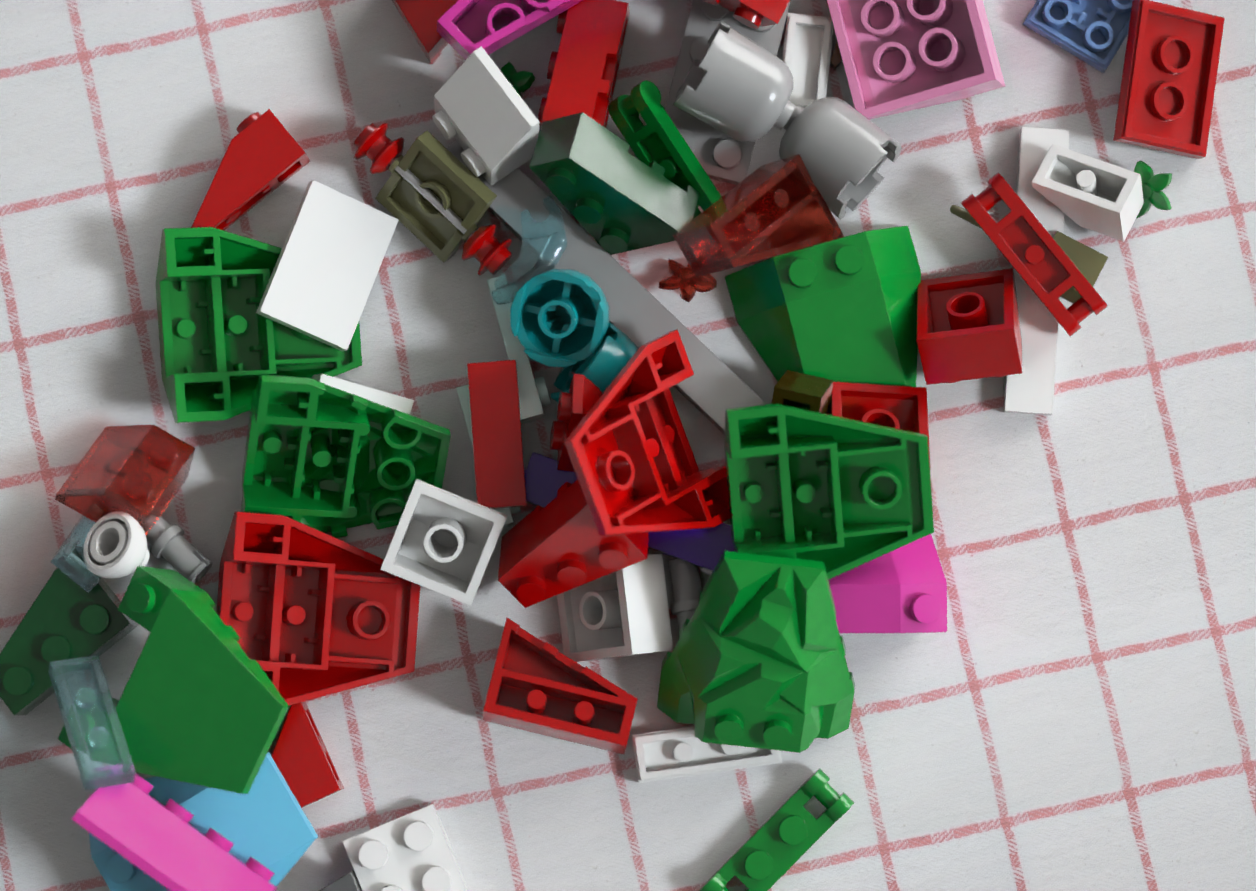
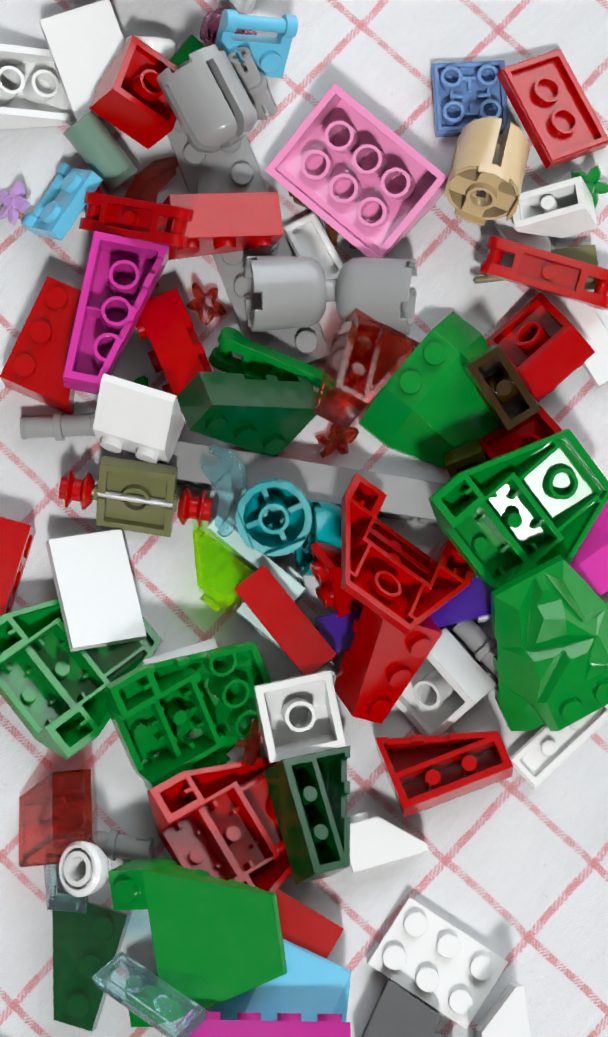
camera: 35 degrees left, 5 degrees down
(379, 536) = (252, 744): none -> clear red plant
(390, 648) = (312, 812): none -> dark green wedge
(404, 63) = (57, 425): none -> light grey pin
(437, 726) = (379, 842): none -> white slope
(464, 333) = (217, 573): none -> clear neon green slope
(650, 40) = (205, 304): none -> clear red plant
(891, 343) = (500, 387): none -> dark brown brick
(1045, 122) = (489, 168): none -> tan cylinder

